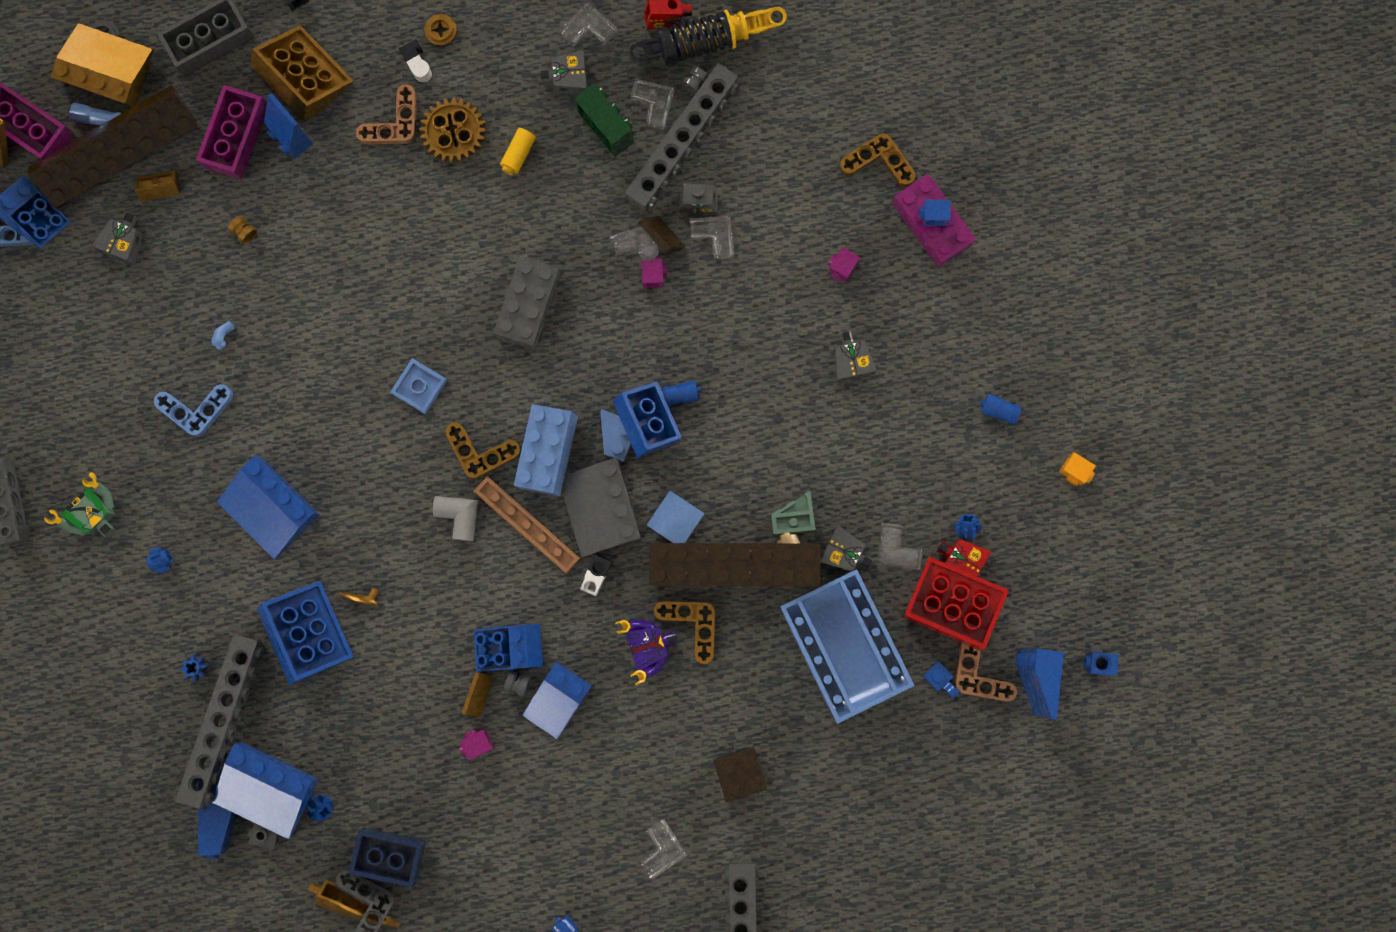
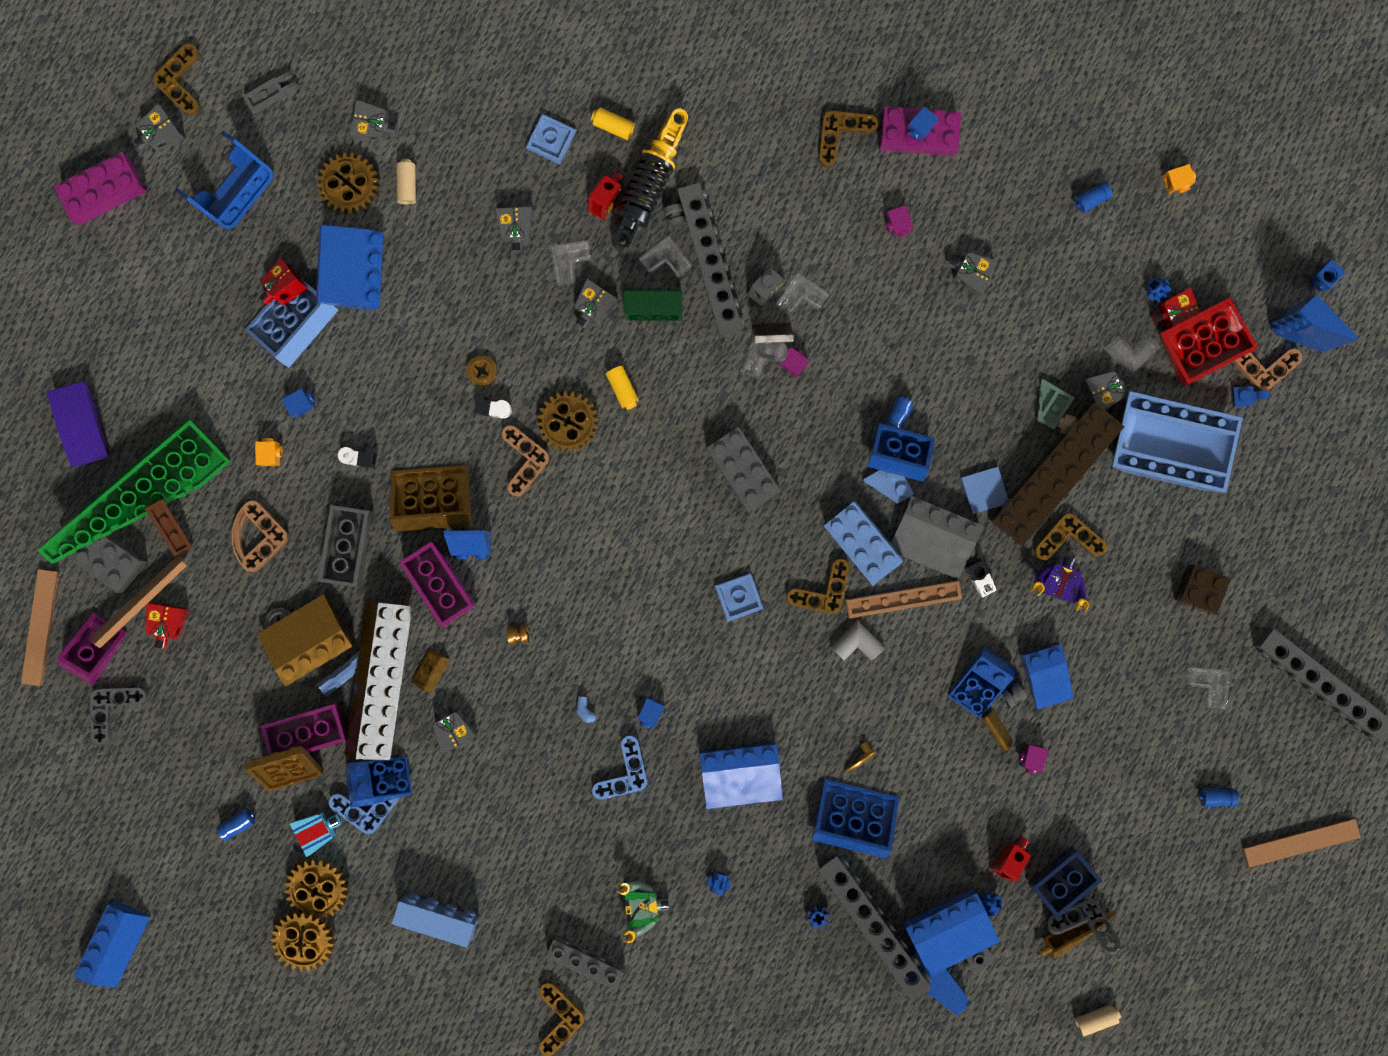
camera: 55 degrees left, 5 degrees up
(261, 389) = (650, 713): none -> blue brick
(362, 797) = (1012, 860): none -> red torso

